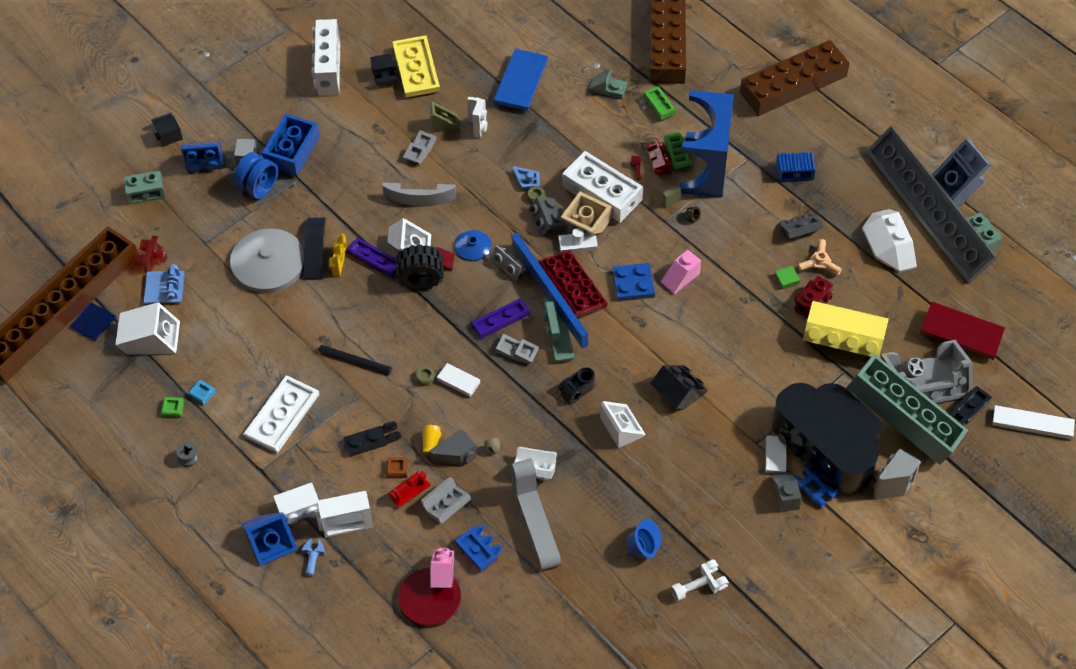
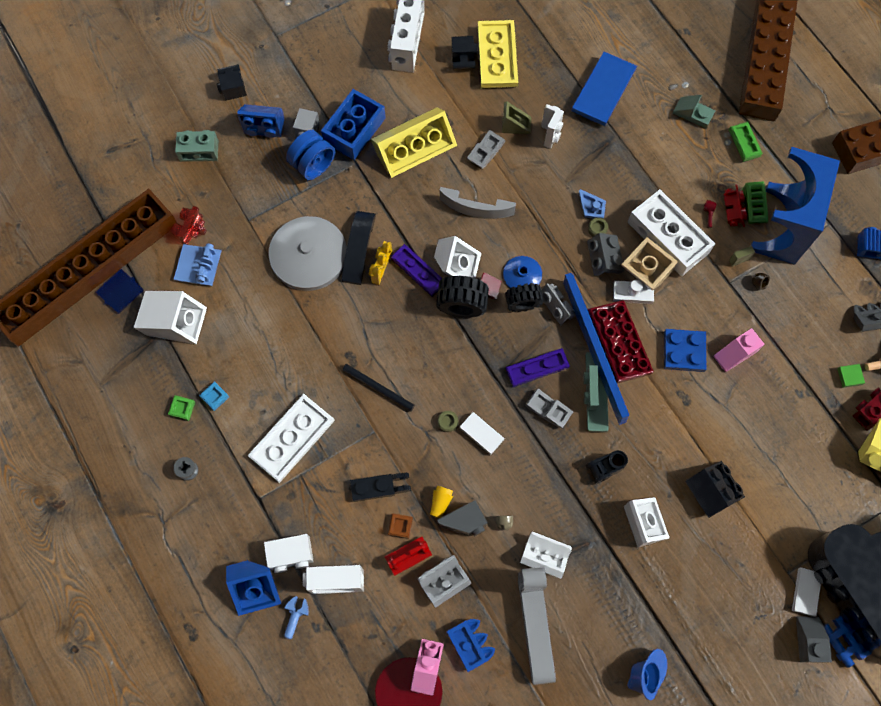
camera: 10 degrees right, 15 degrees up
(351, 151) = (414, 142): none -> light yellow slope
(477, 260) = (524, 297): none -> black tyre

